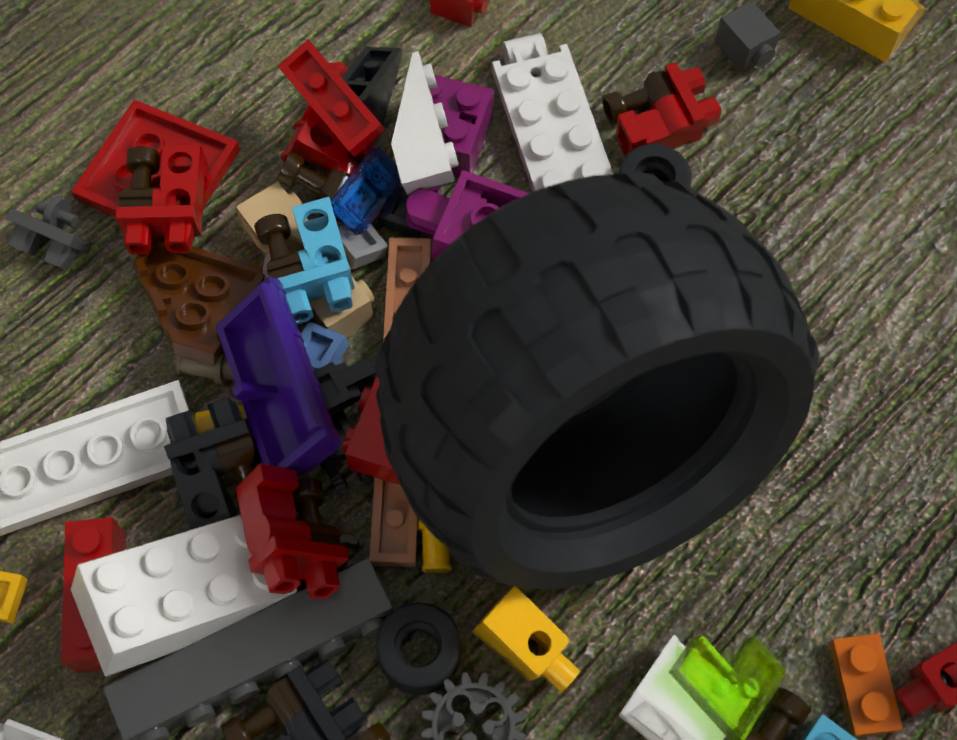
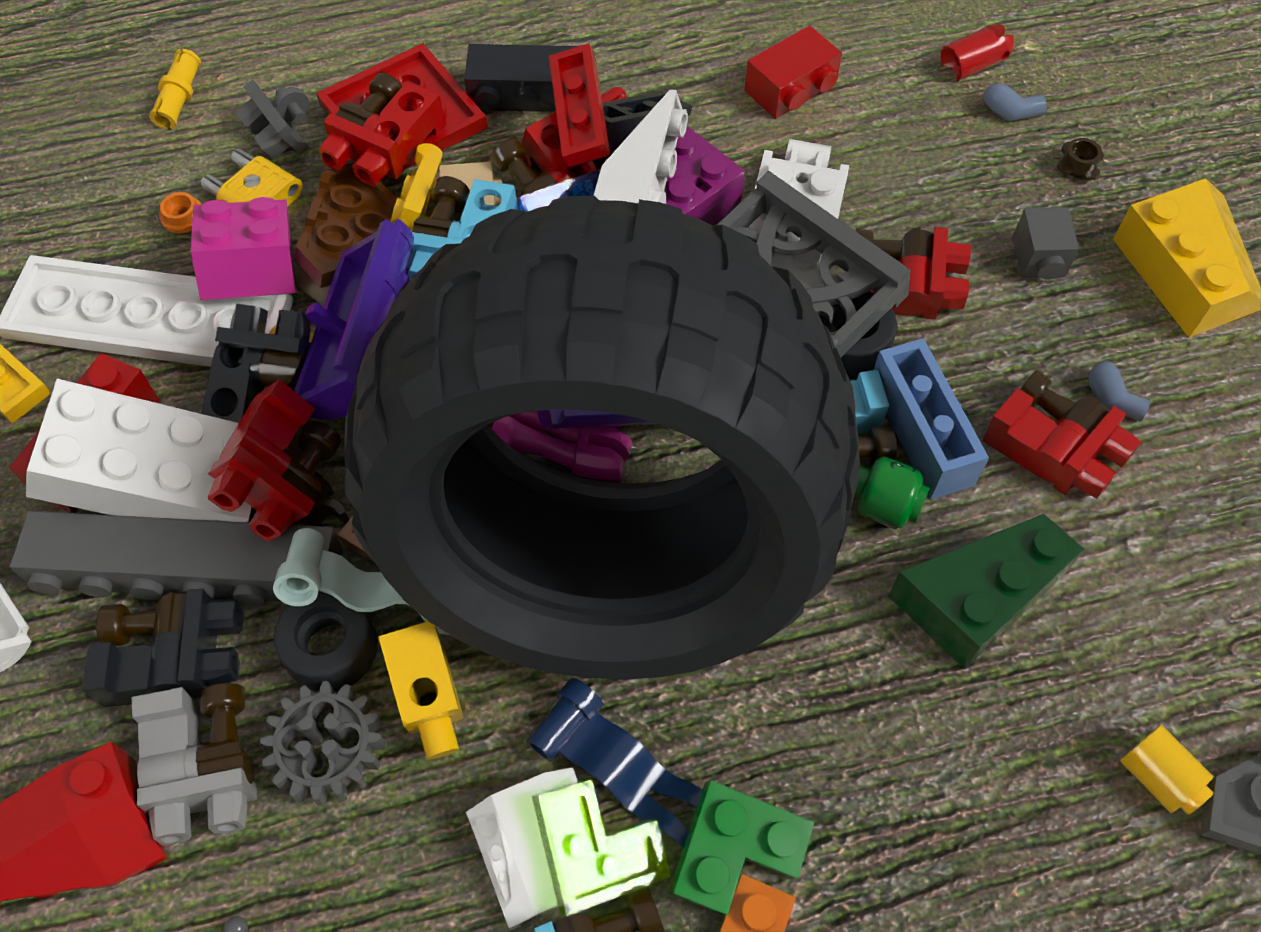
camera: 30 degrees right, 5 degrees down
(22, 351) = (177, 212): none -> orange plate
(78, 307) = (255, 180): none -> yellow piece
(119, 365) = (242, 249): none -> dark pink brick
(235, 240) = (418, 185): none -> yellow plate
(243, 89) = (511, 76): none -> black brick
(392, 598) = (315, 570): none -> light aqua flag
(588, 114) = (864, 263): none -> dark grey fence
(696, 611) = (611, 757): none -> dark blue flag
(779, 231) = (929, 419): none -> medium blue brick
(806, 621) = (734, 830): none -> green plate
(858, 196) = (1061, 449): none -> red hips
(861, 134) = (1110, 389): none -> sand blue arm
(872, 335) = (985, 586): none -> dark green wedge

